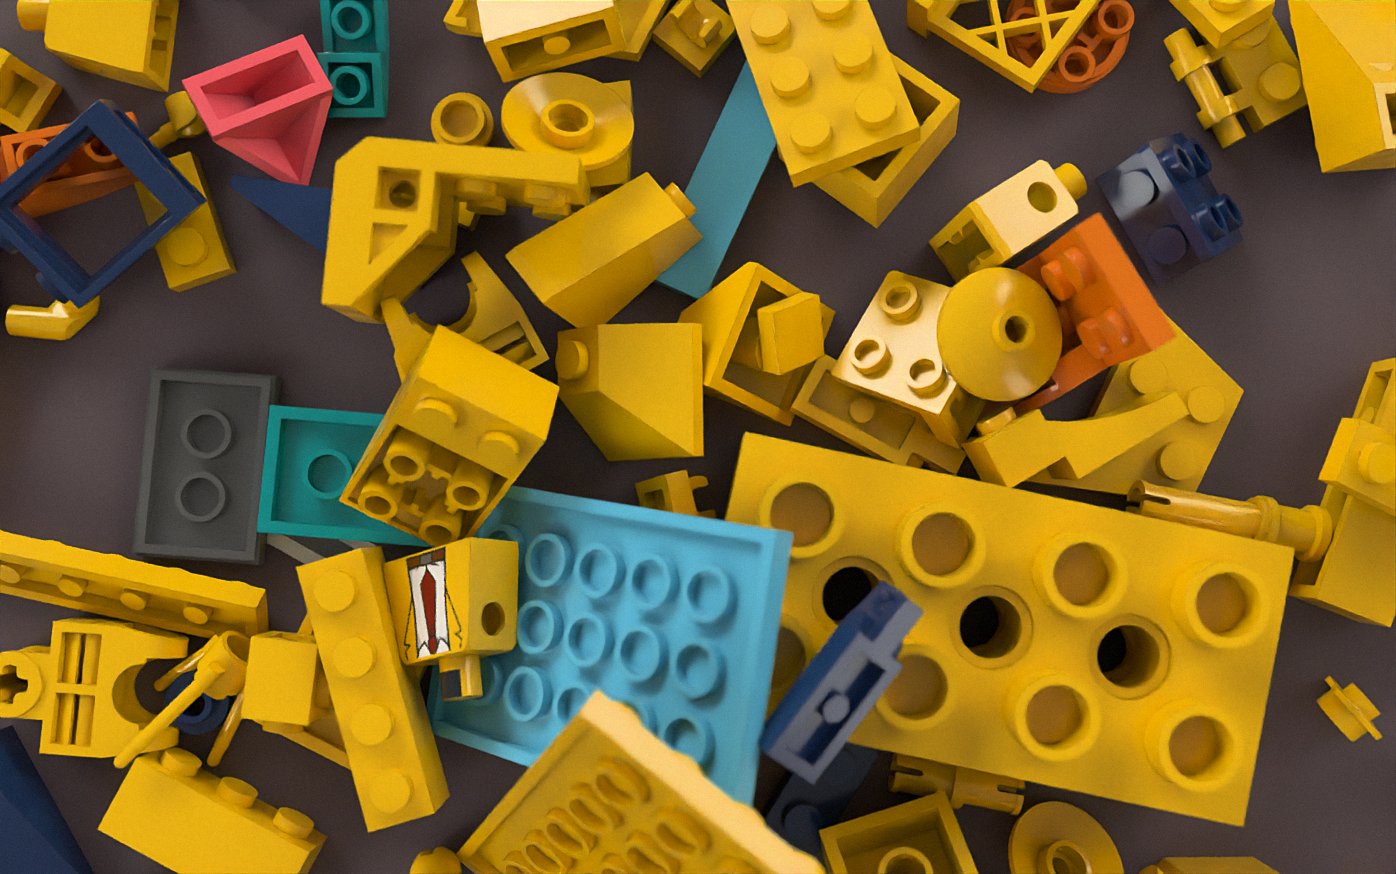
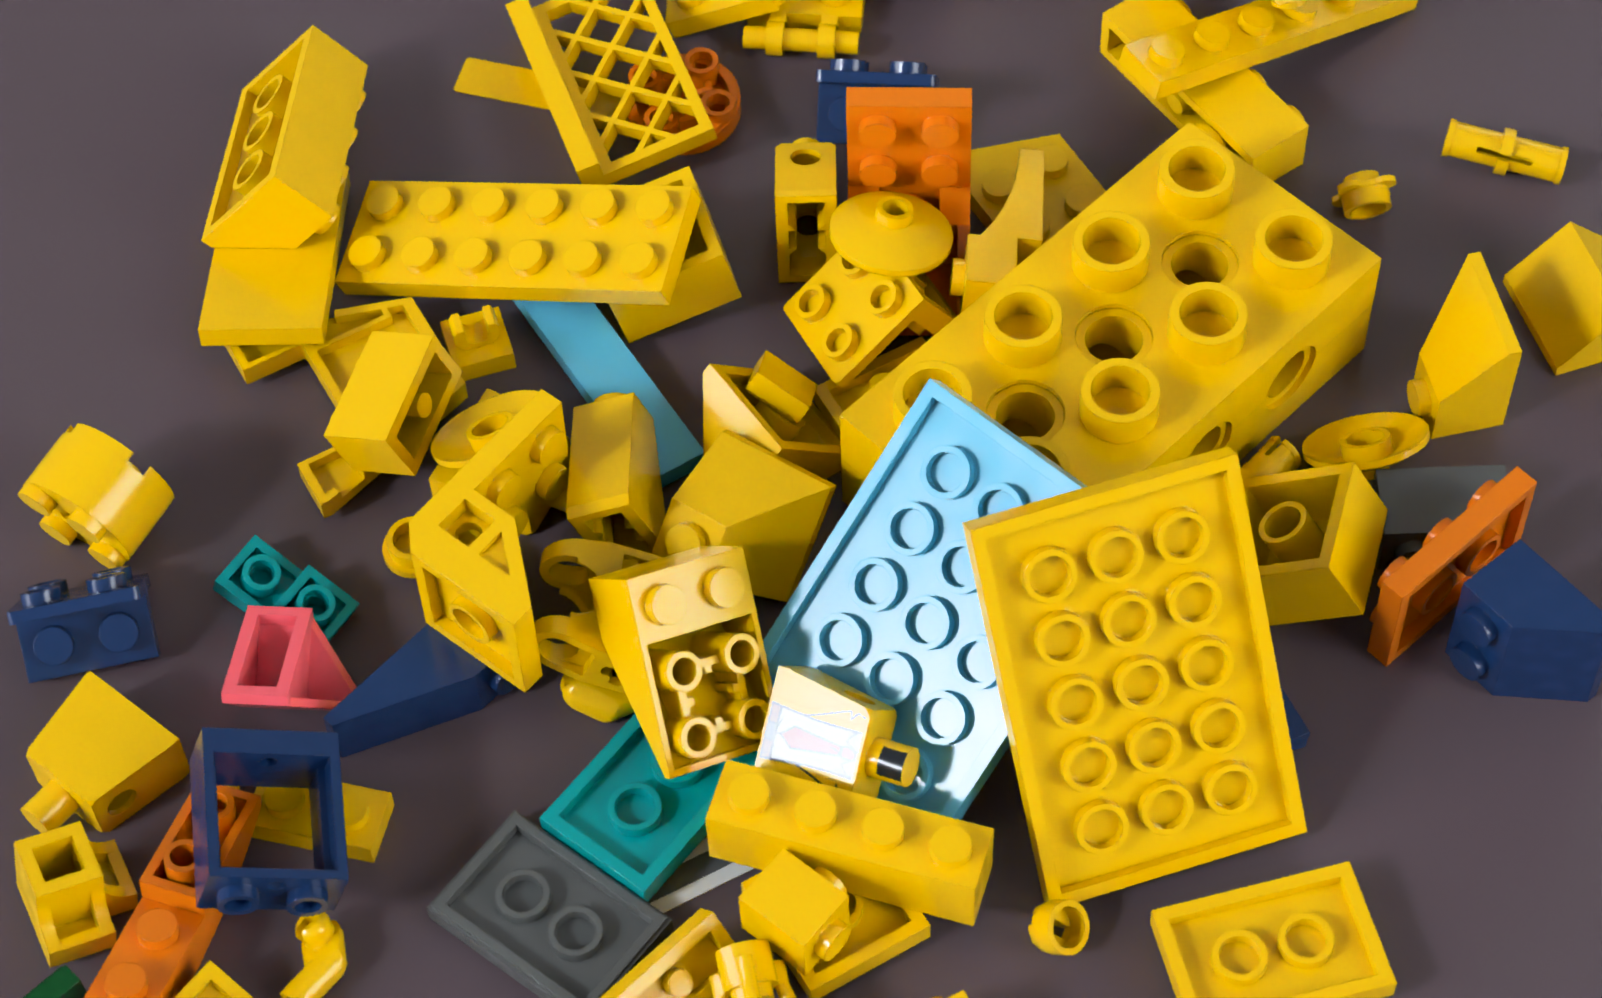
camera: 55 degrees left, 30 degrees down
(840, 683) = (1077, 413): dark blue hinge -> none

